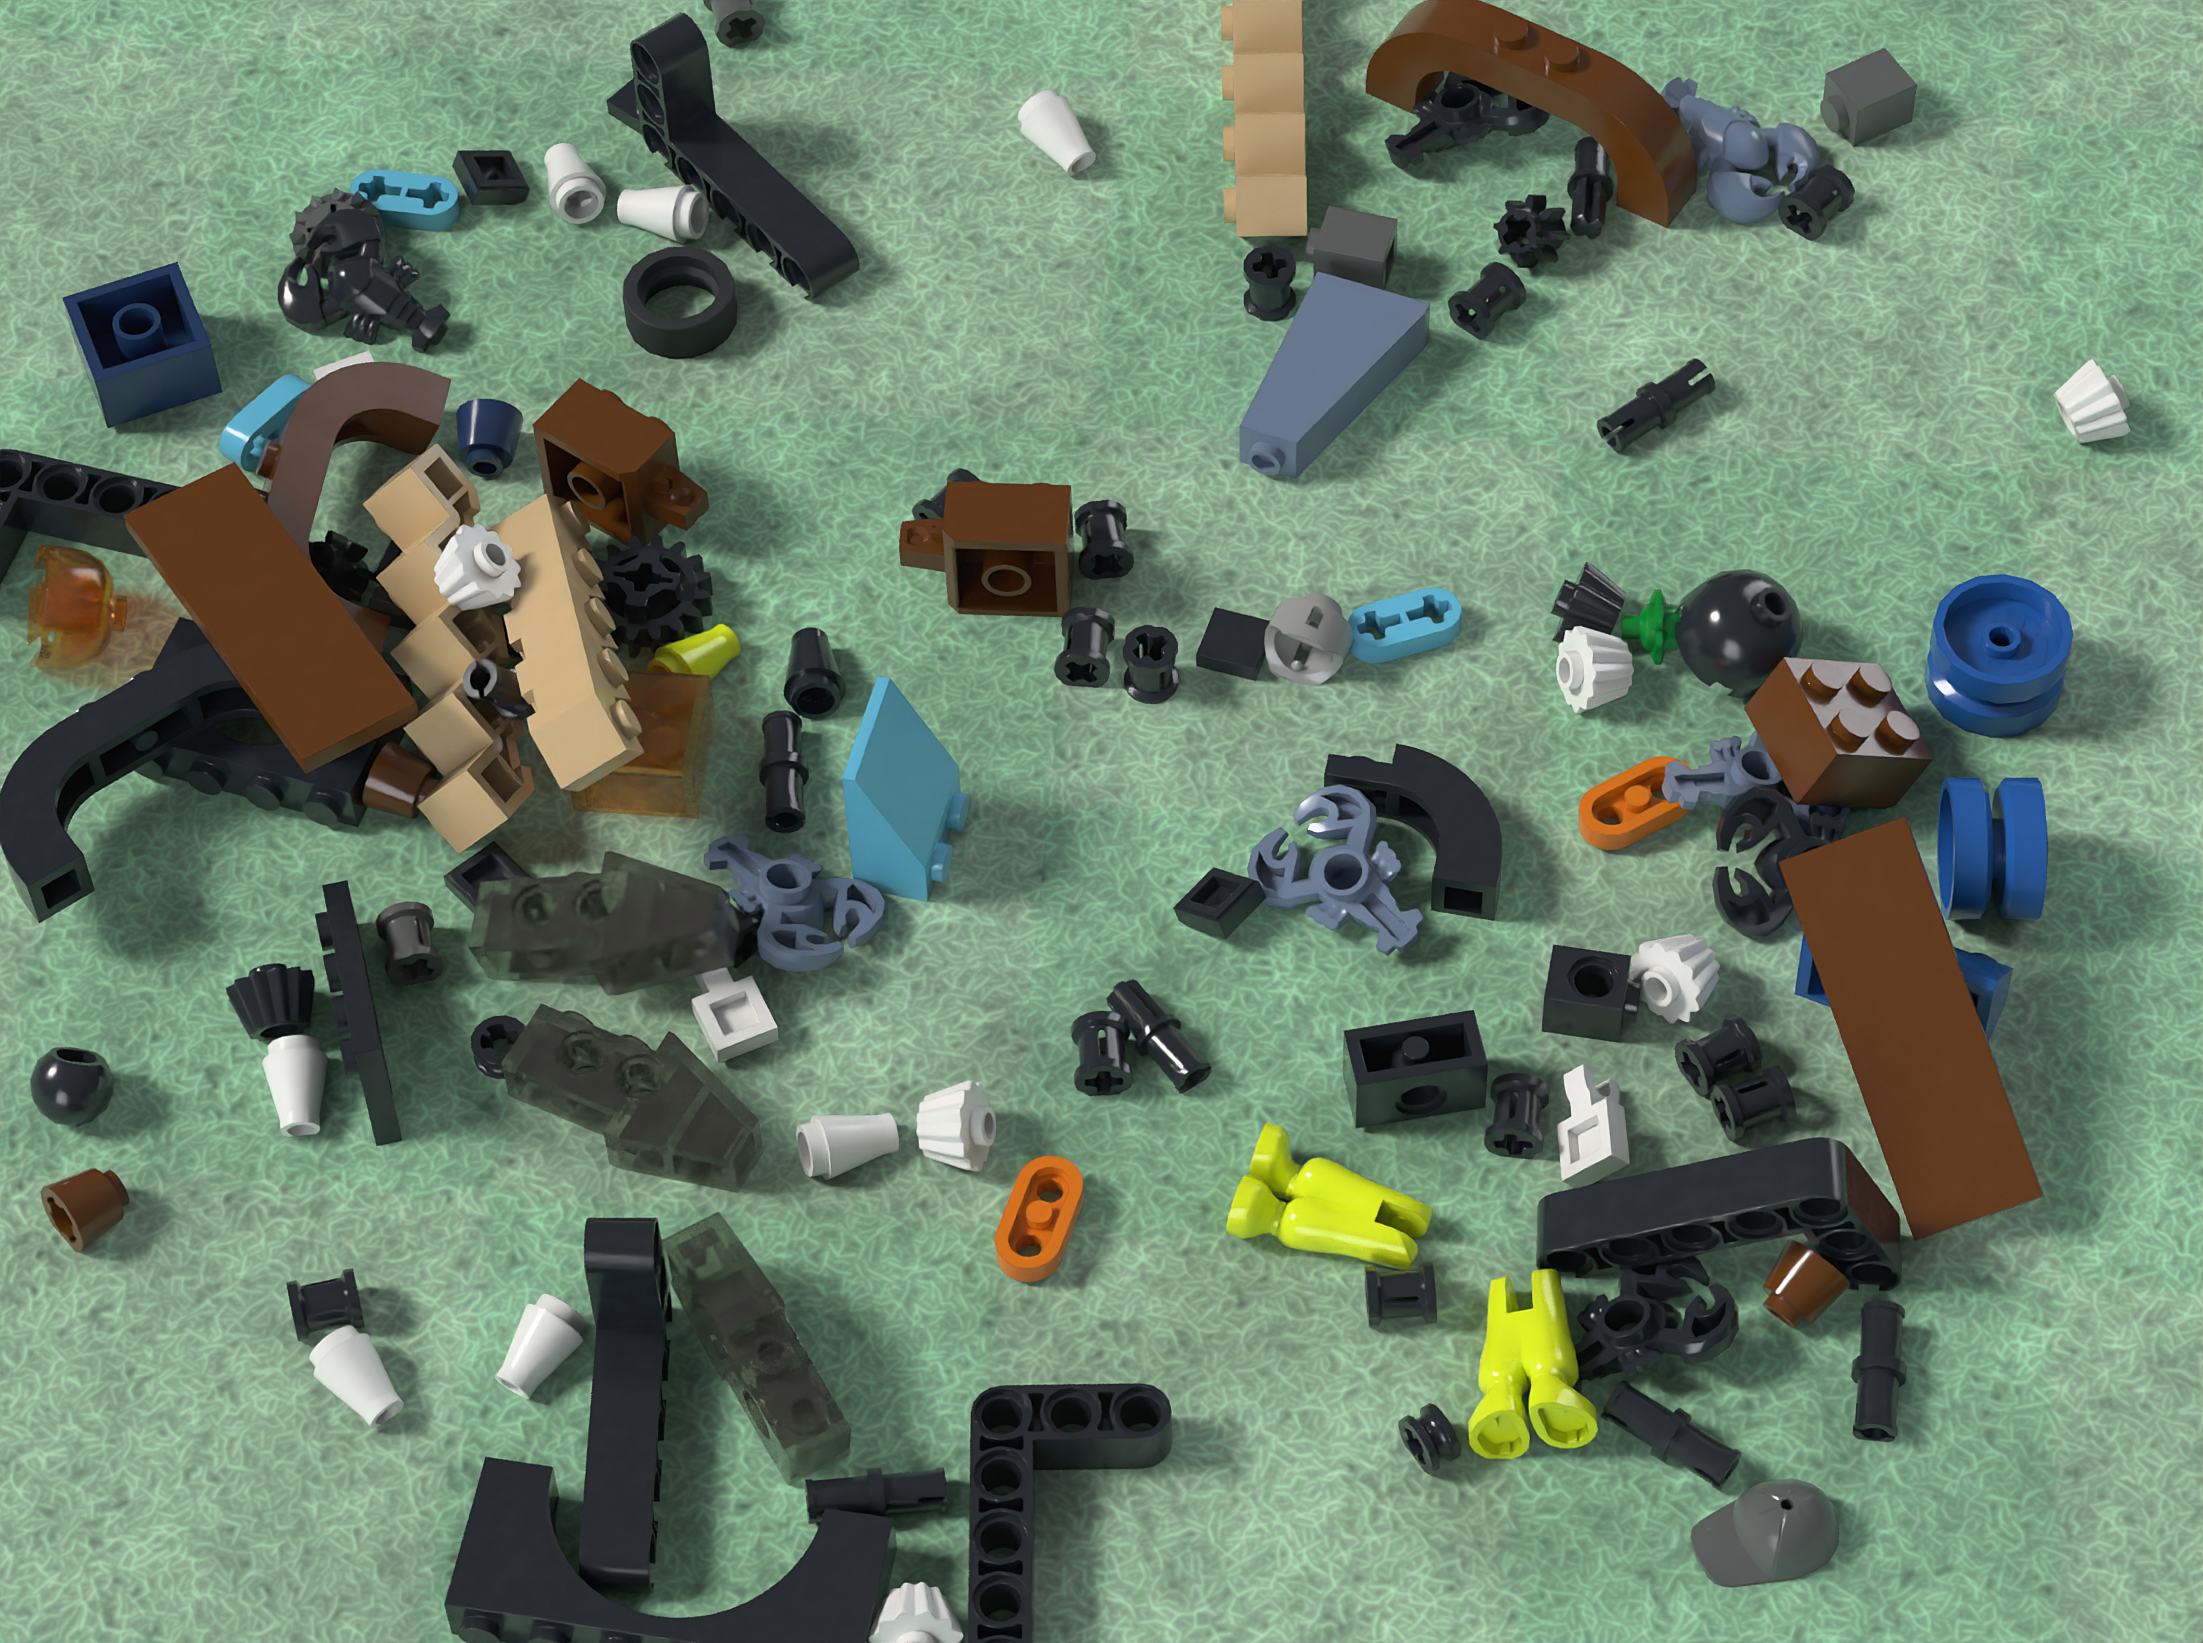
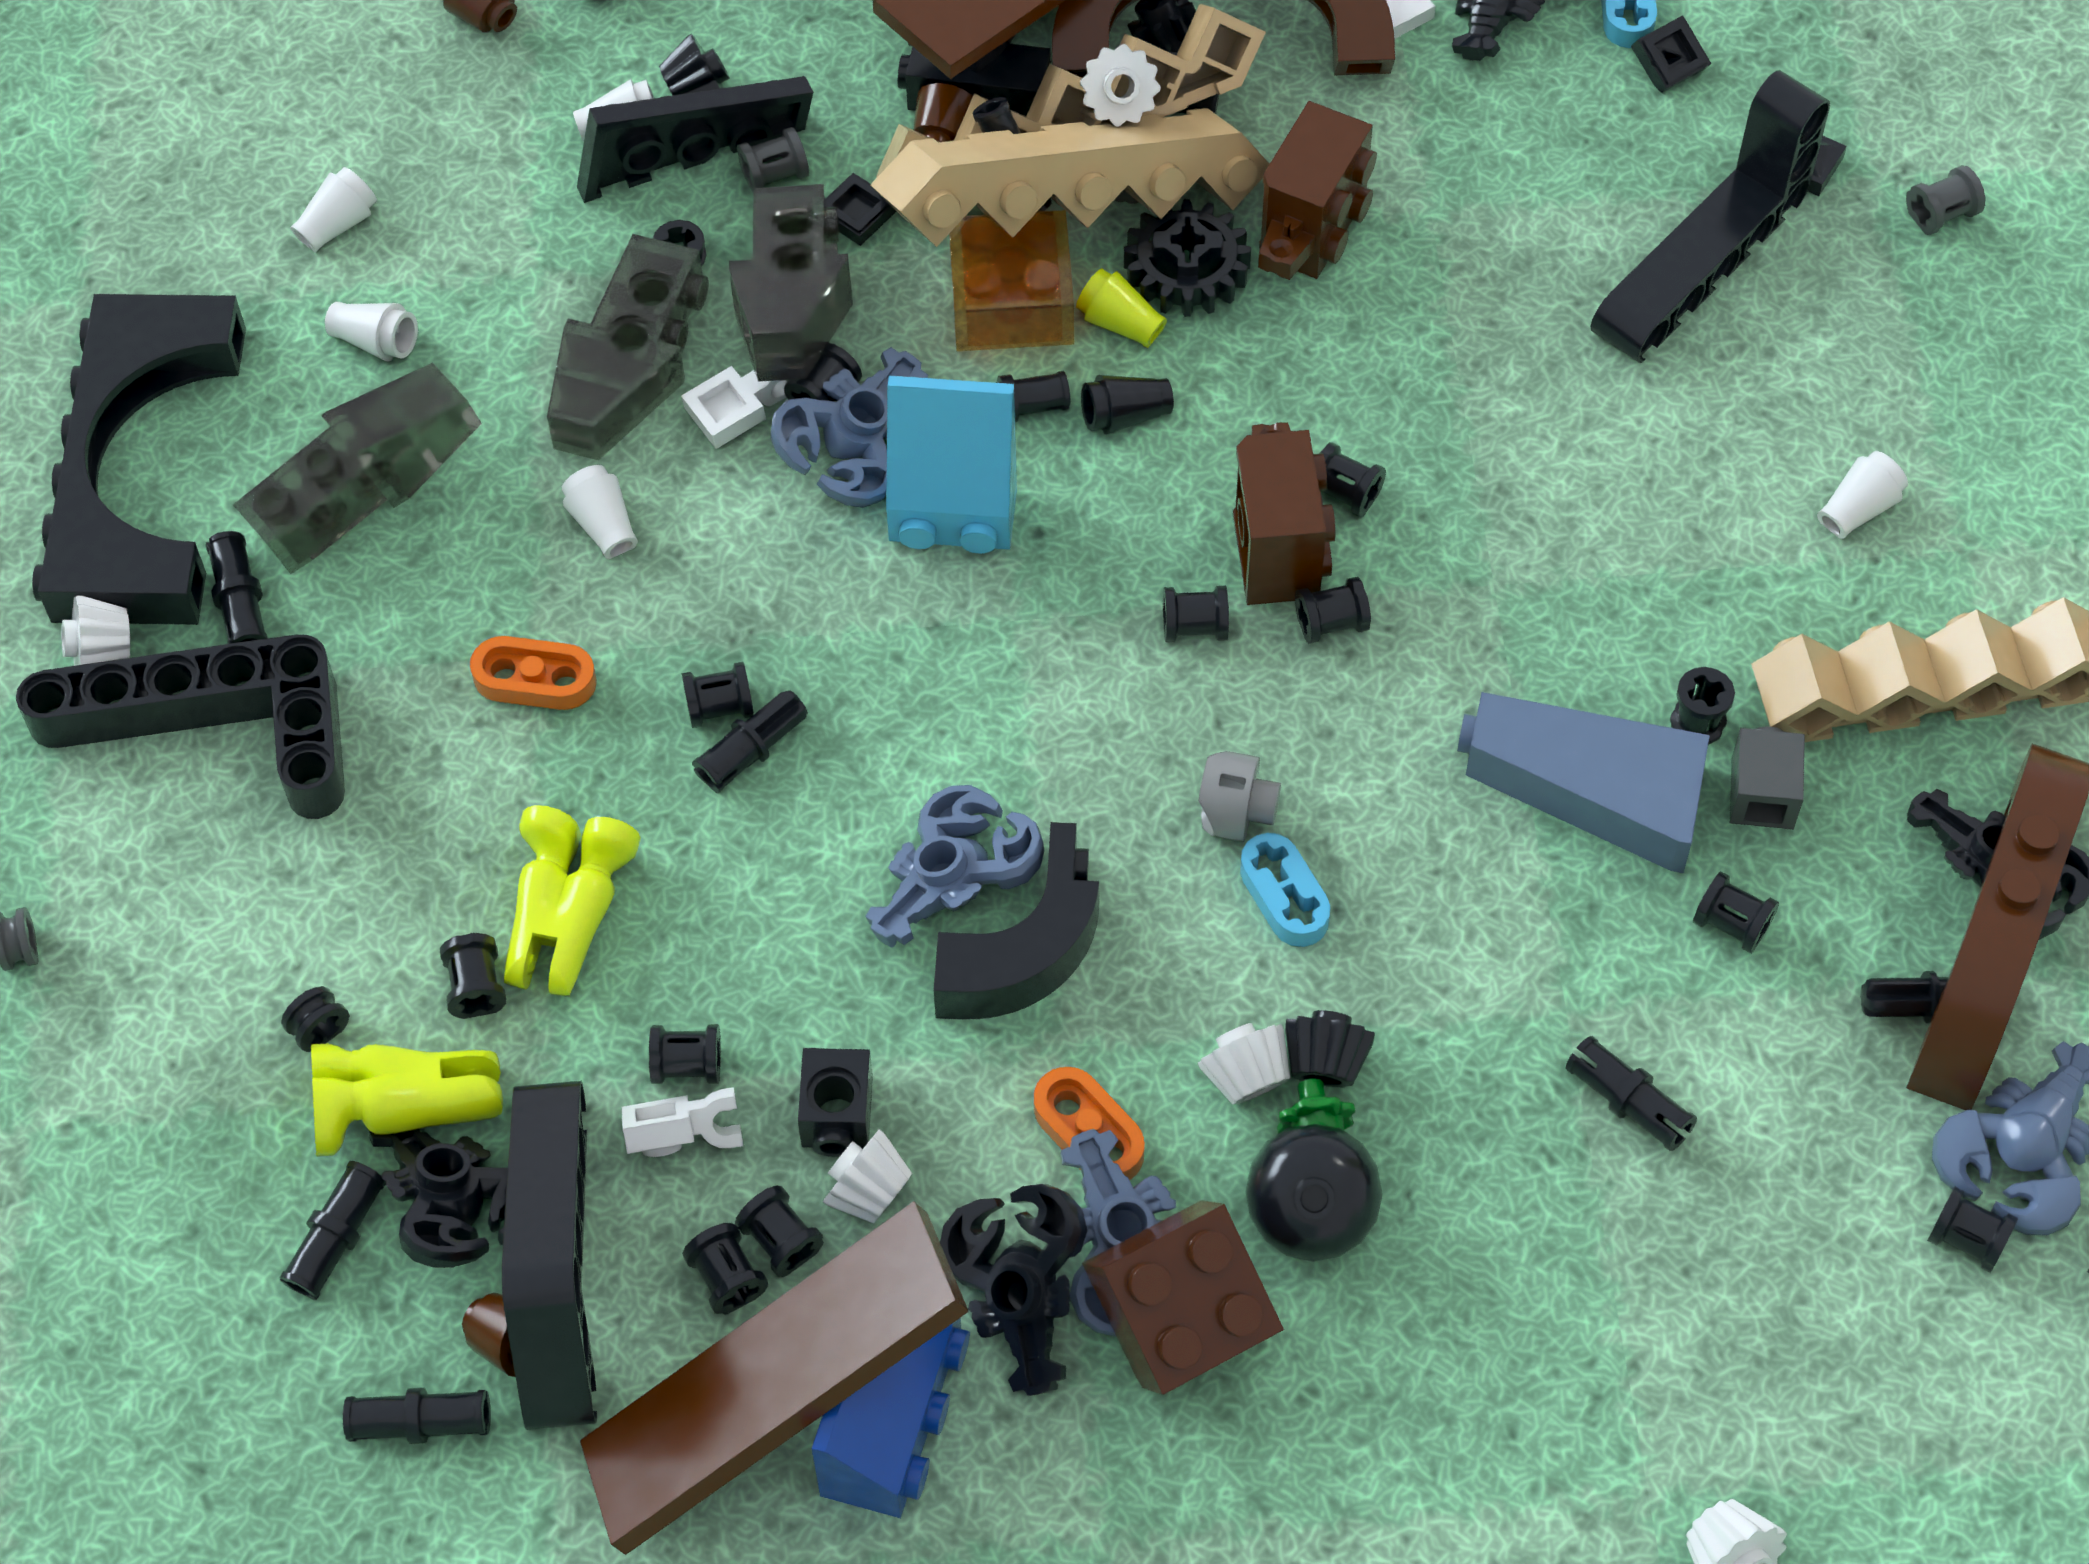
camera: 80 degrees right, 5 degrees up
(325, 1304) = (401, 175): black bush -> none
(487, 435) = (1351, 98): dark blue hat -> none
(573, 186) = (1677, 116): white cone -> none
(627, 1405) = (283, 397): black beam -> none
(666, 211) = (1664, 194): white cone -> none
(680, 336) = (1544, 257): black tyre -> none
(957, 1126) = (619, 592): white piece -> none
(1158, 657) = (1181, 667): black bush -> none
(1219, 902) = (909, 769): black tile -> none
(1233, 644) = (1234, 733): black tile -> none
(1415, 1069) = (714, 948): black brick -> none
(1531, 231) = (1839, 940): black gear -> none
(1762, 1542) = (254, 1355): dark grey cap -> none
(1992, 848) = (1047, 1460): blue wheel -> none
(1998, 655) = (1339, 1418): blue wheel -> none

